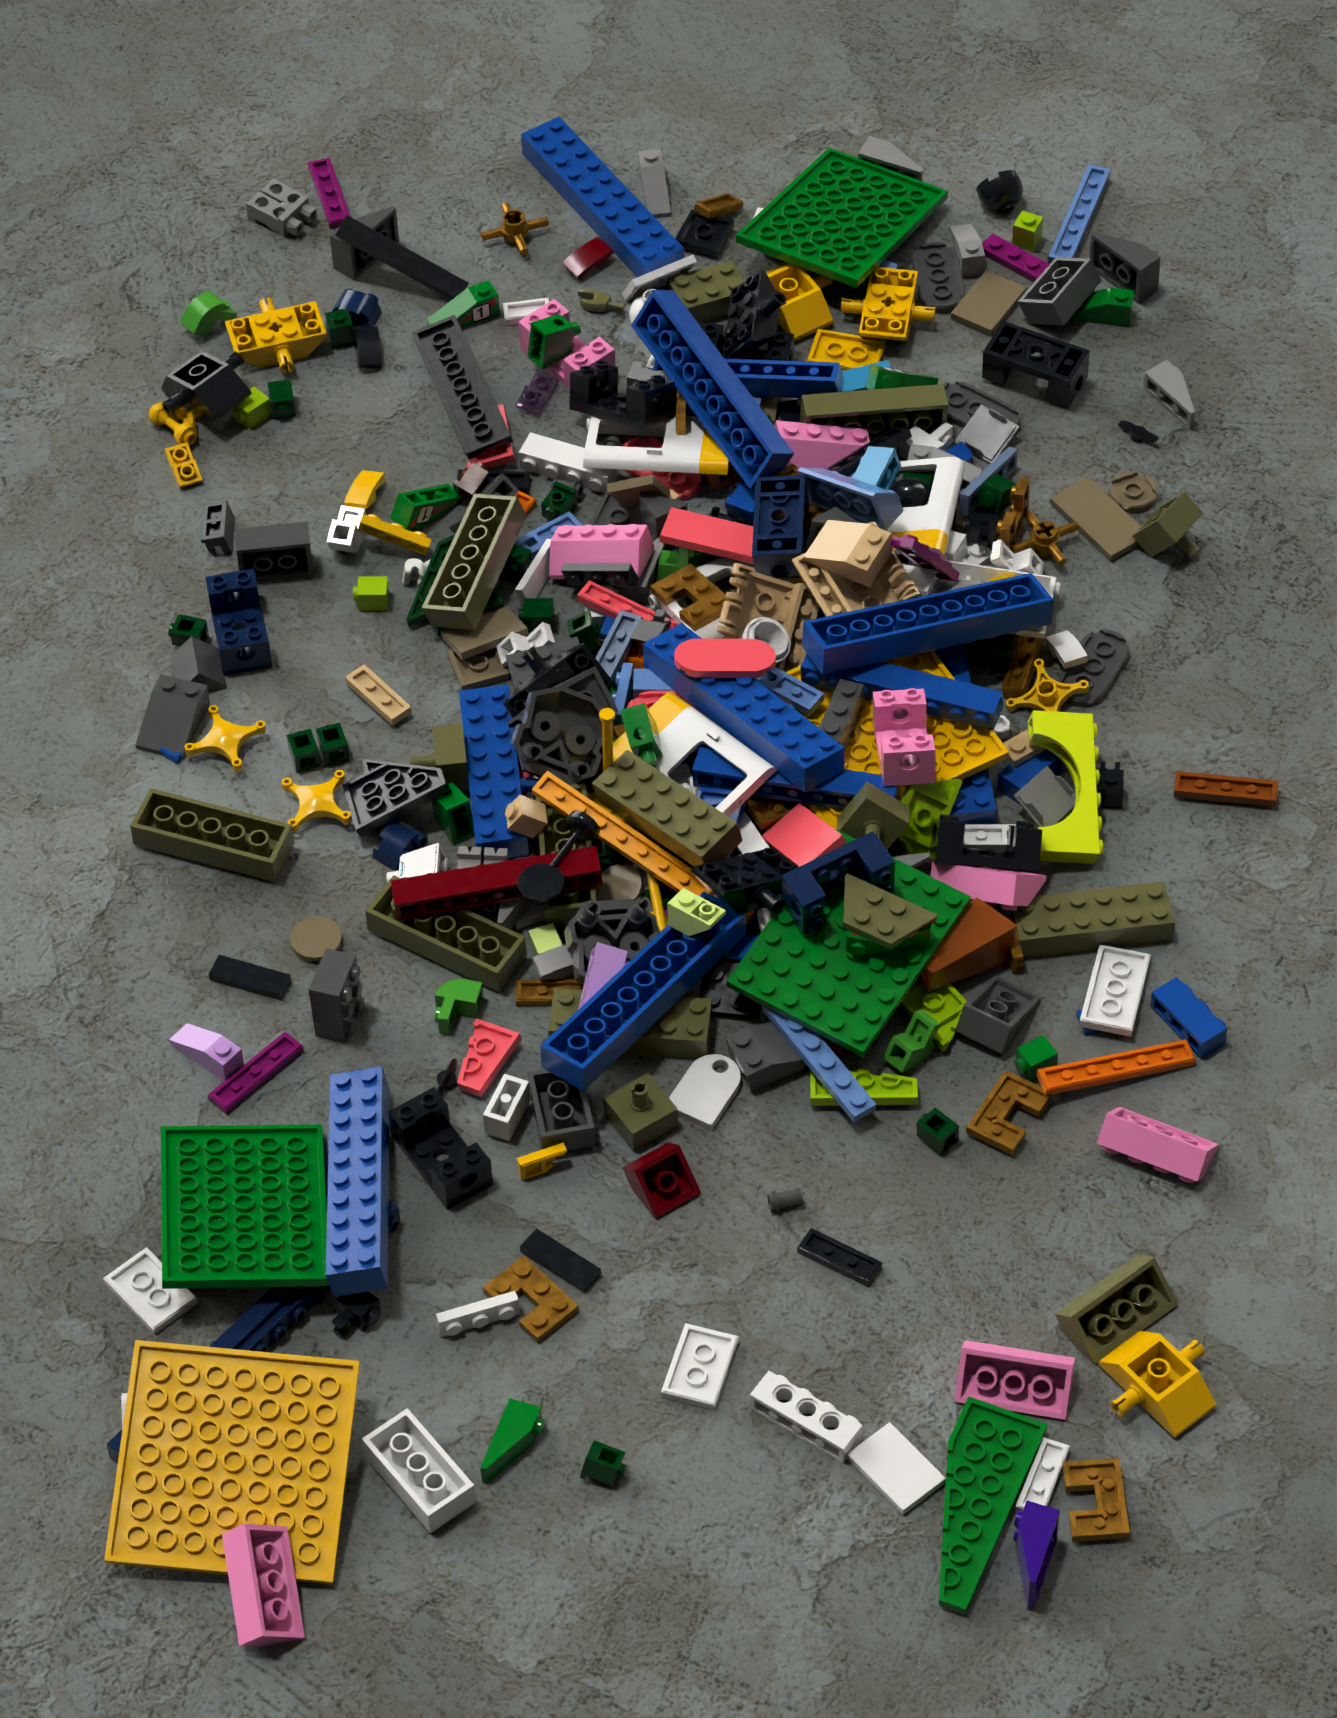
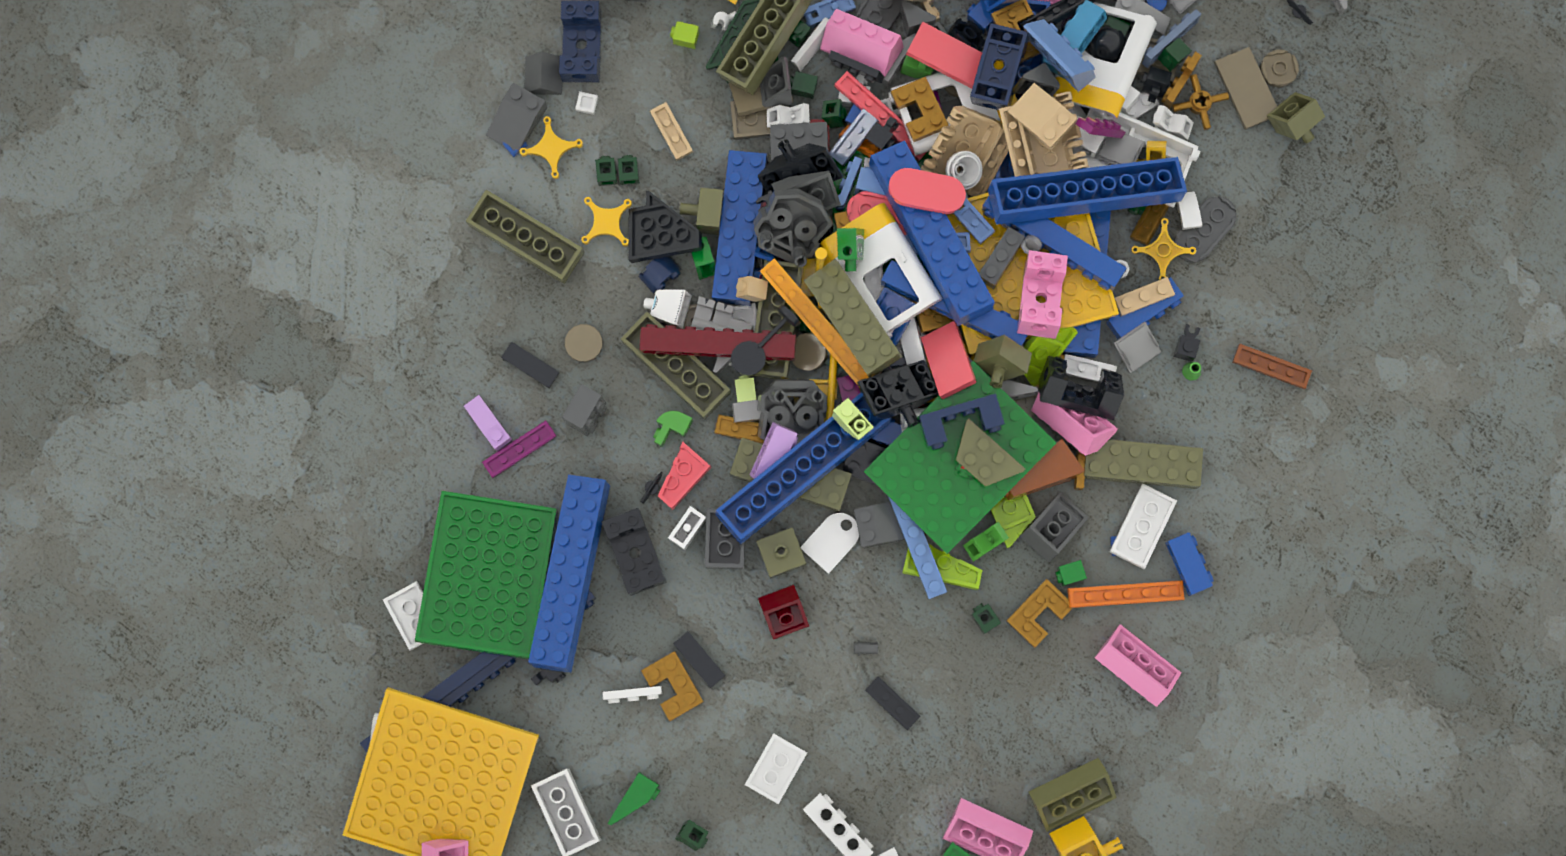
camera: 15 degrees right, 30 degrees up
(187, 626) = (541, 34): dark green brick -> none
(260, 689) = (586, 103): none -> white tile
(504, 612) = (776, 85): none -> dark grey slope
(539, 1161) = (703, 577): yellow tile -> none
(867, 692) = (1031, 243): none -> light grey tile
(1072, 740) = (1169, 310): neon yellow arch -> none
(1125, 810) = (1188, 373): none -> bright green cone

